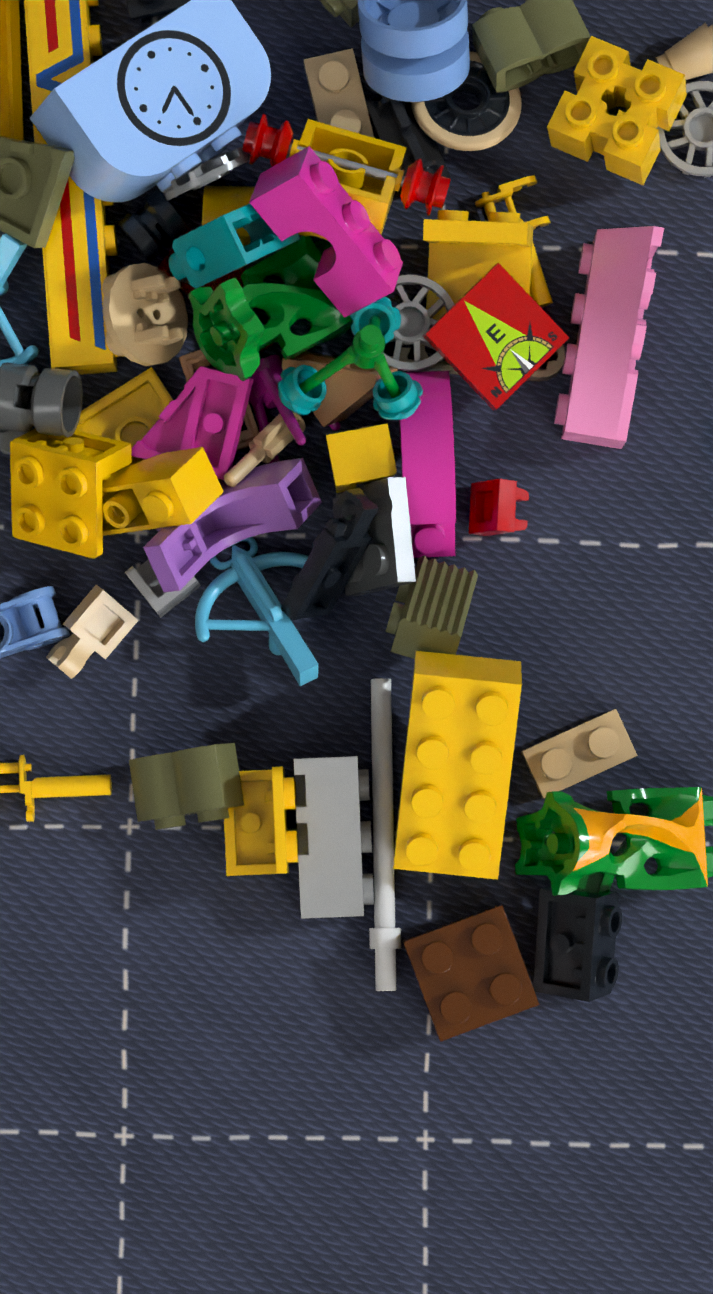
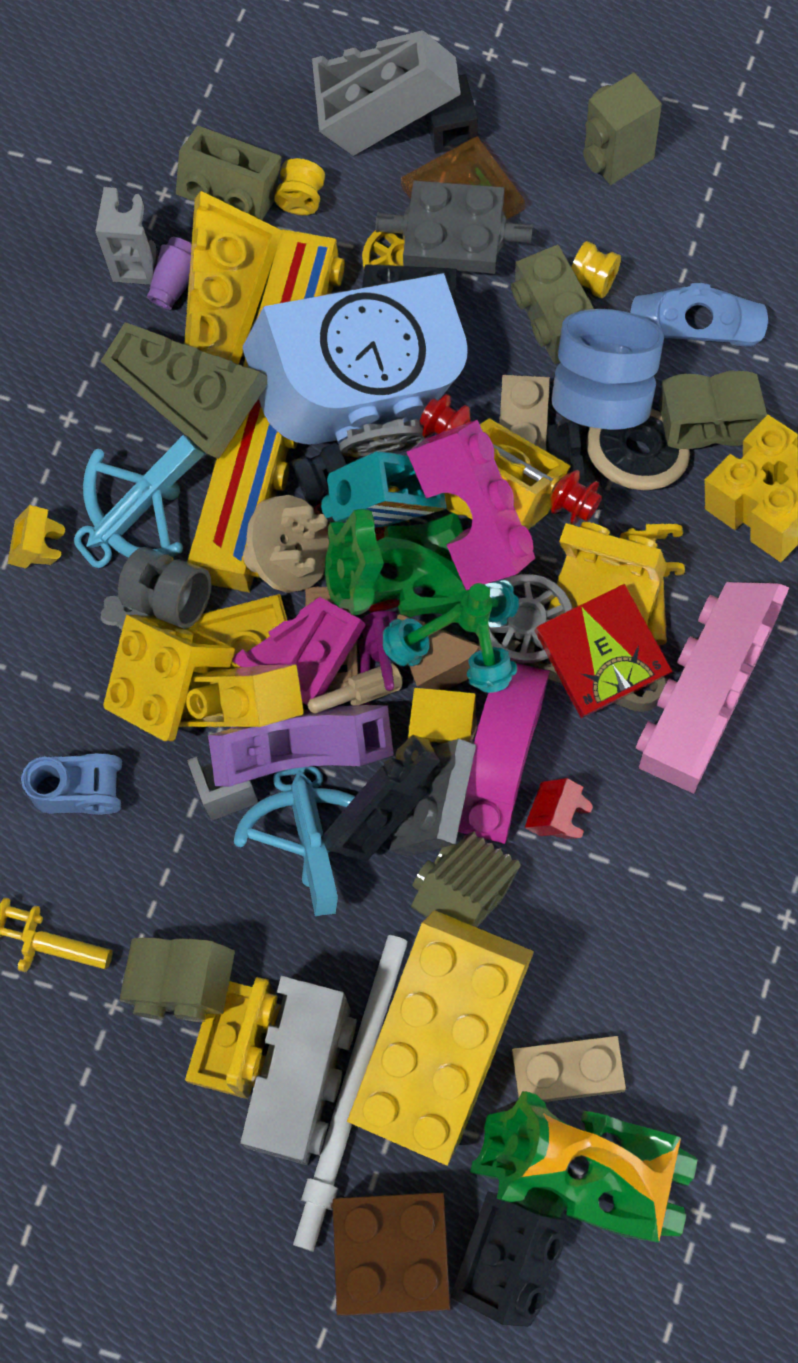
camera: 25 degrees right, 15 degrees down
(96, 626) = (147, 805): tan plate -> none

